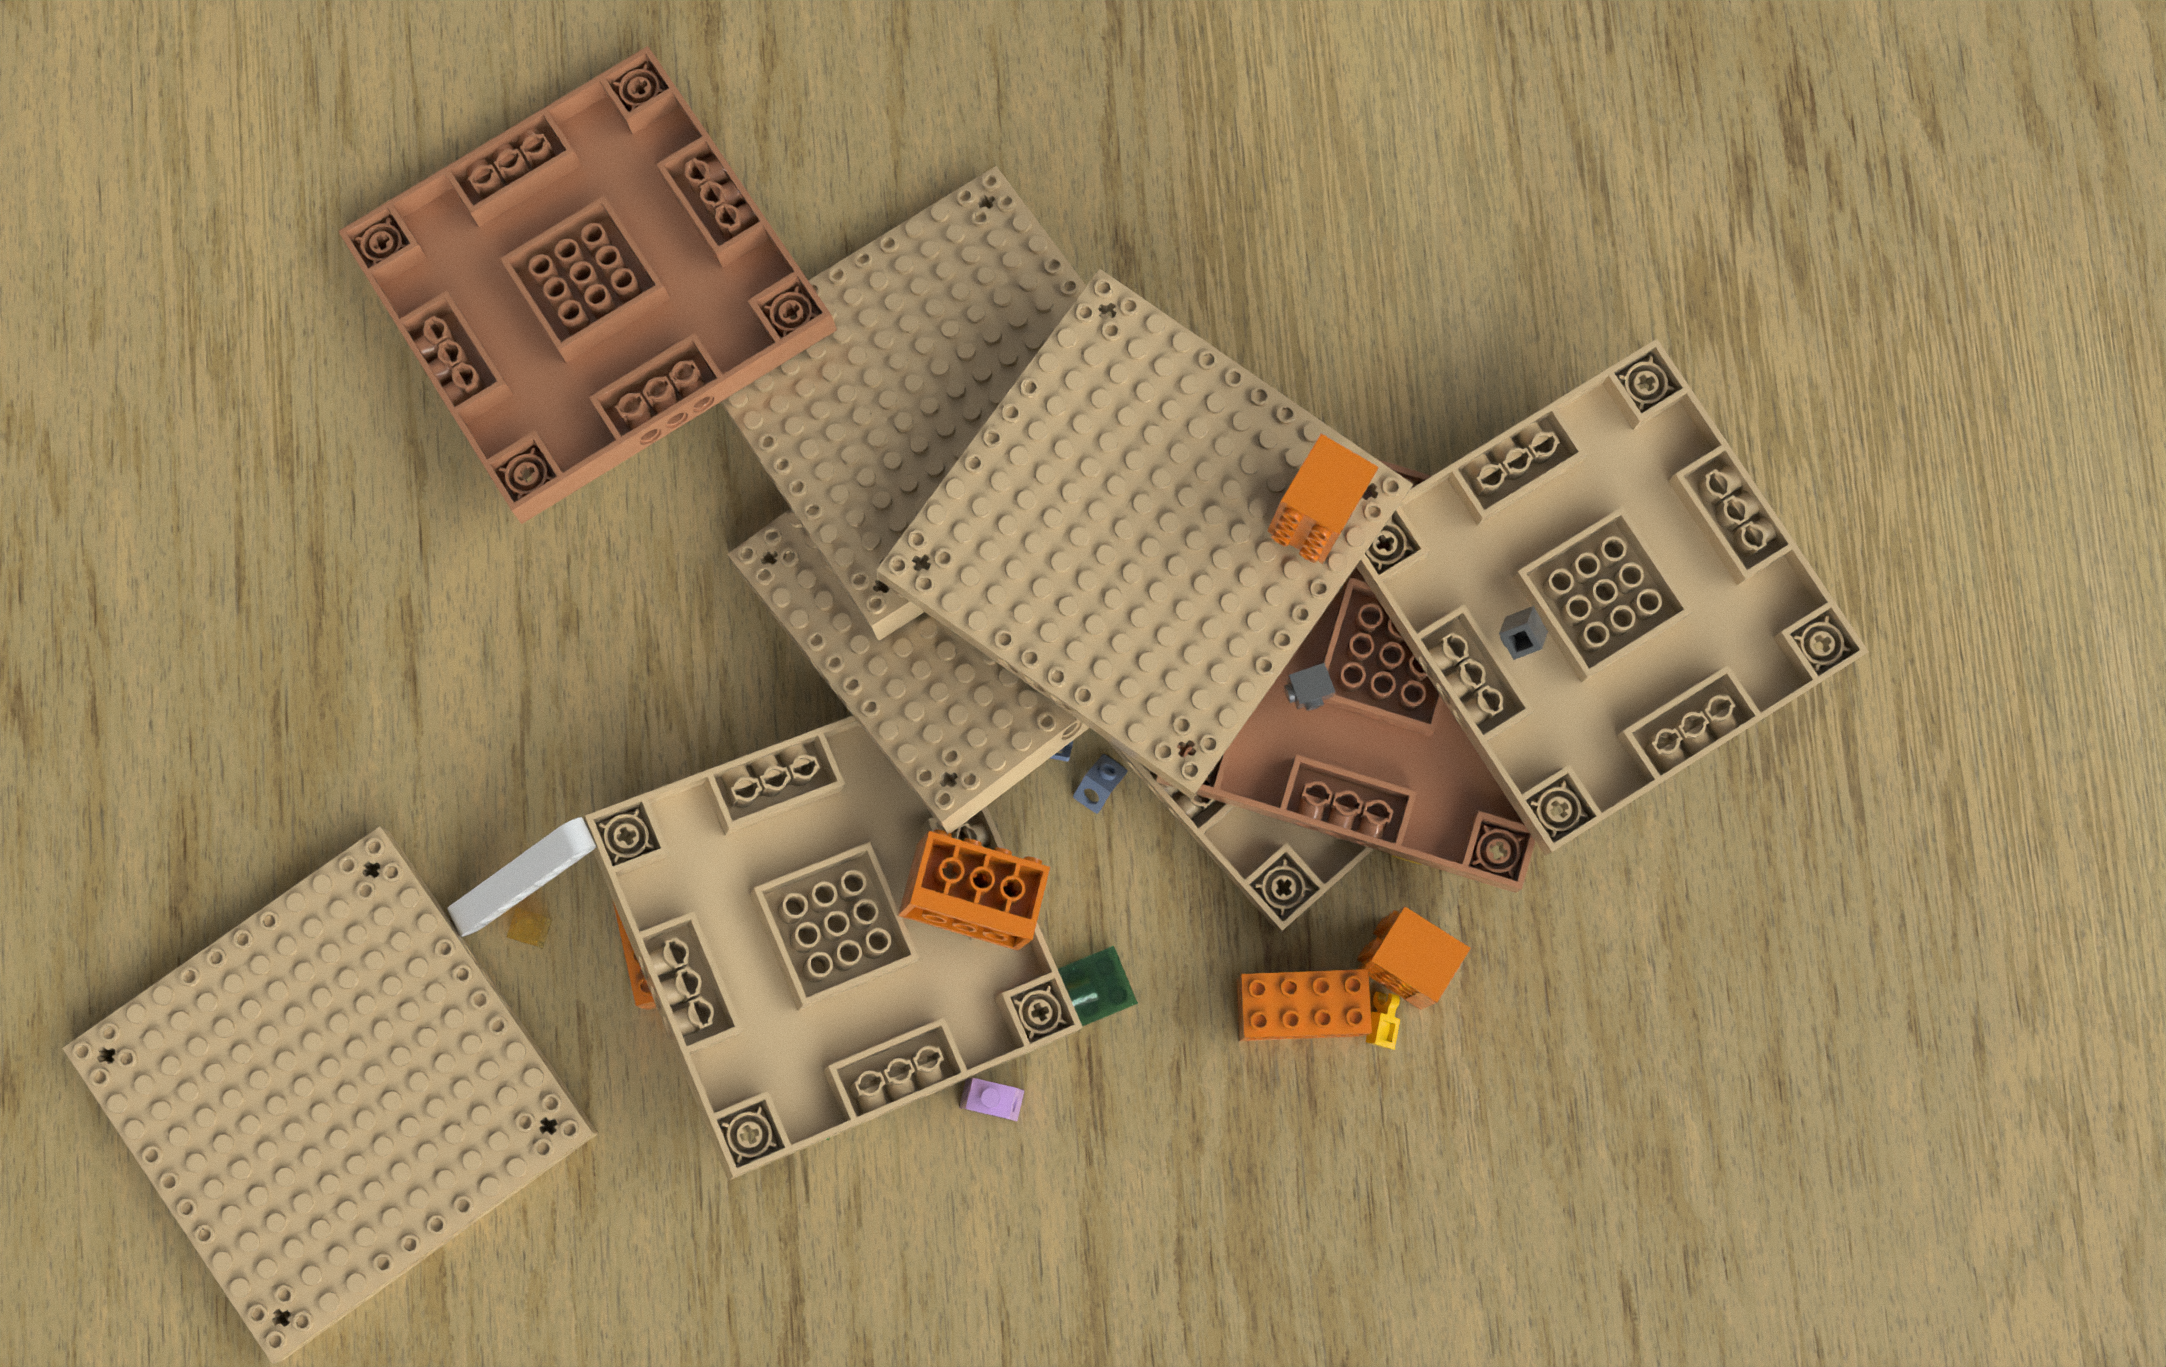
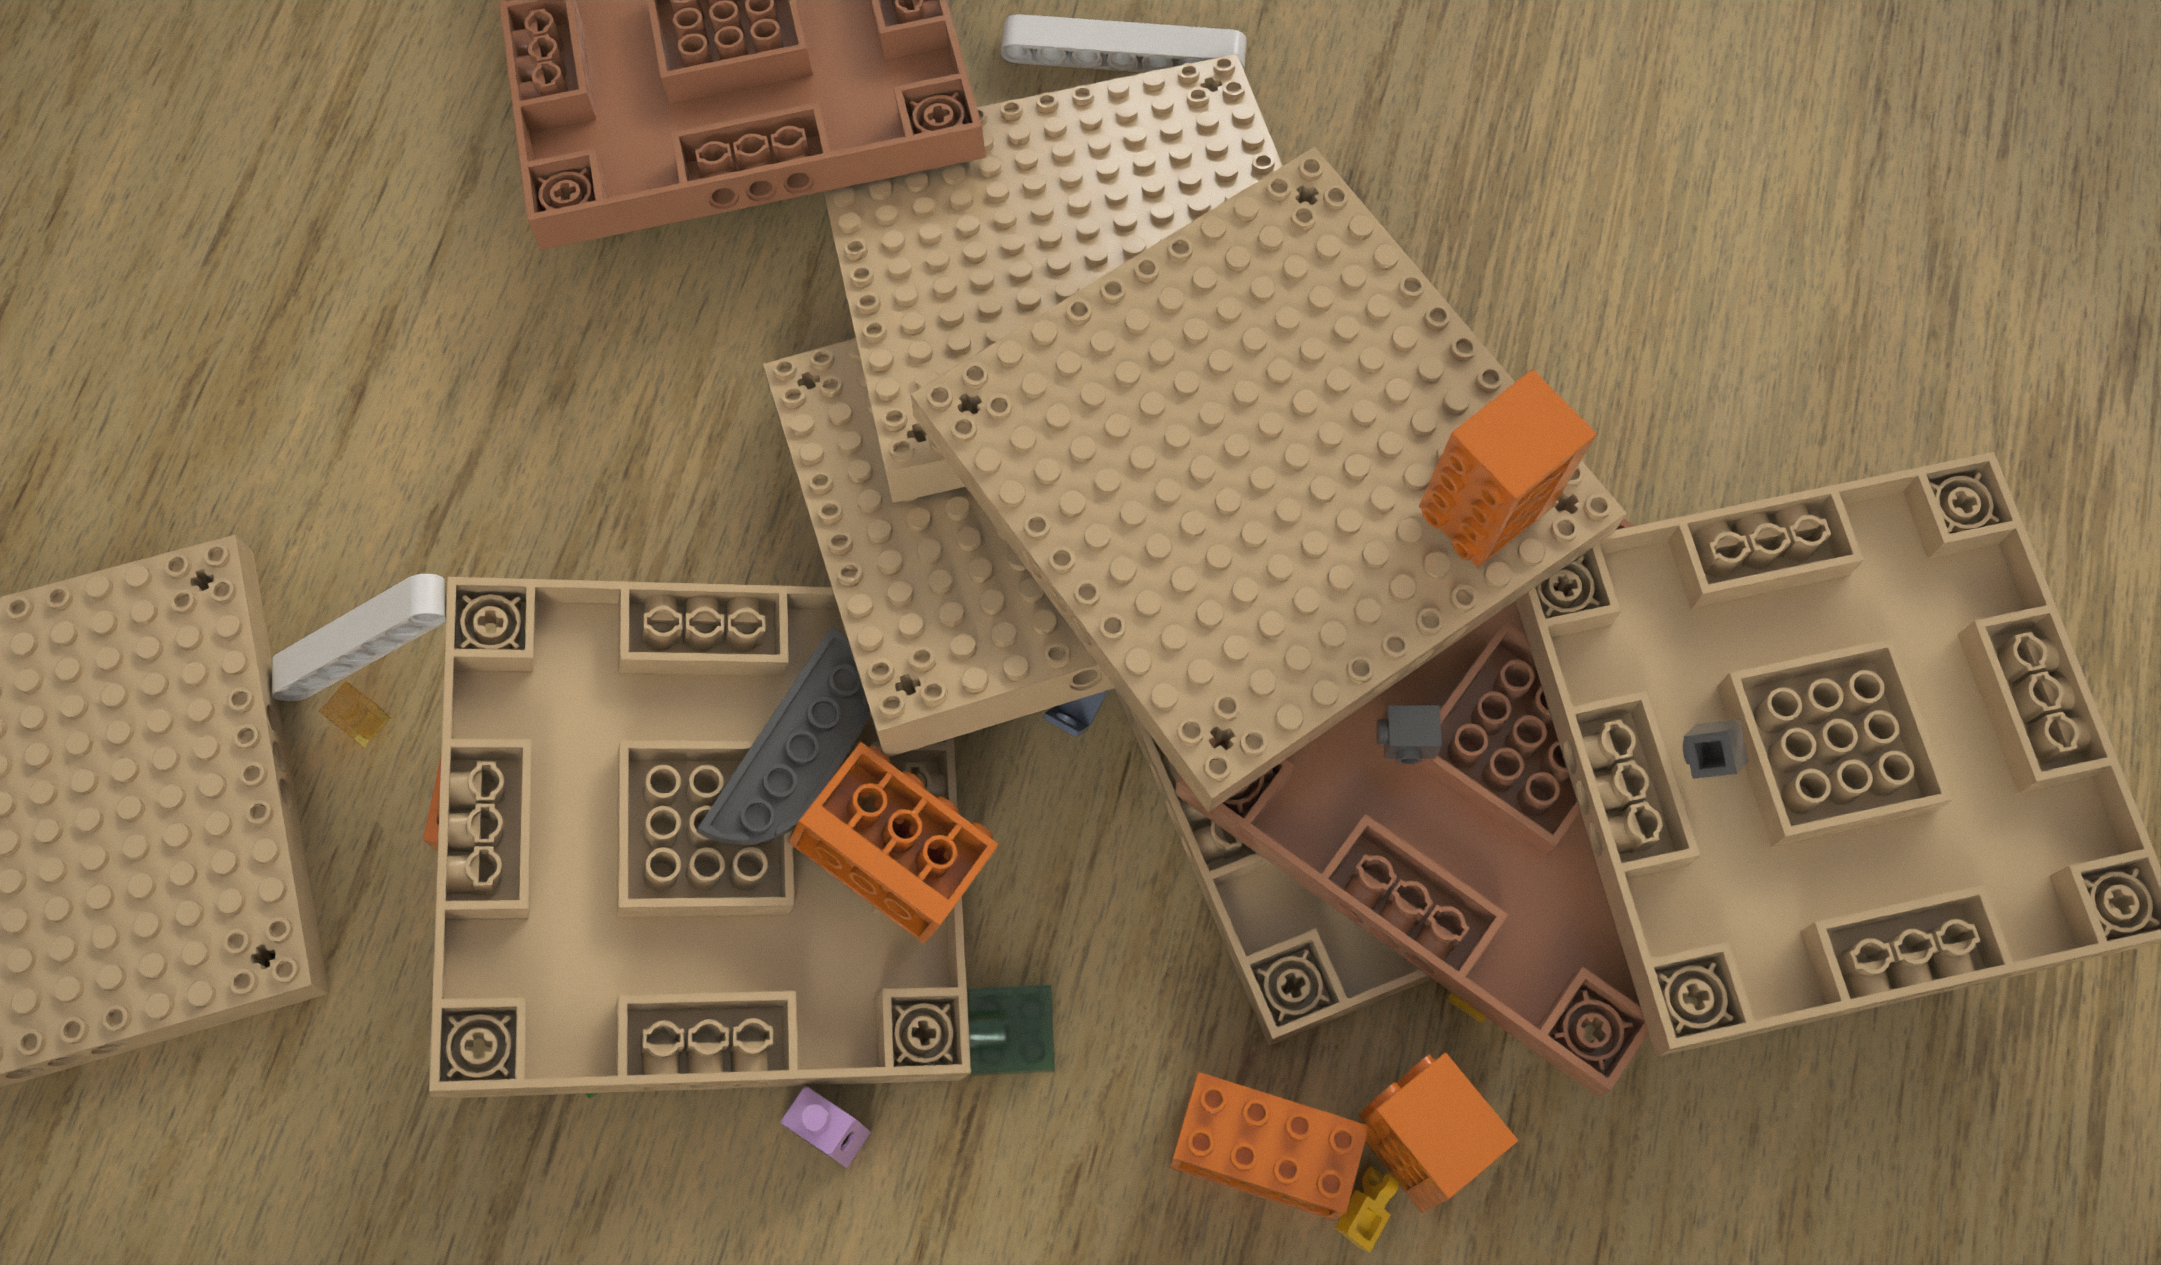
camera: 25 degrees right, 10 degrees down
(878, 847) = (794, 751): none -> dark grey plate
(897, 182) = (1113, 43): none -> white beam
(1102, 779) = (1111, 774): sand blue bracket -> none

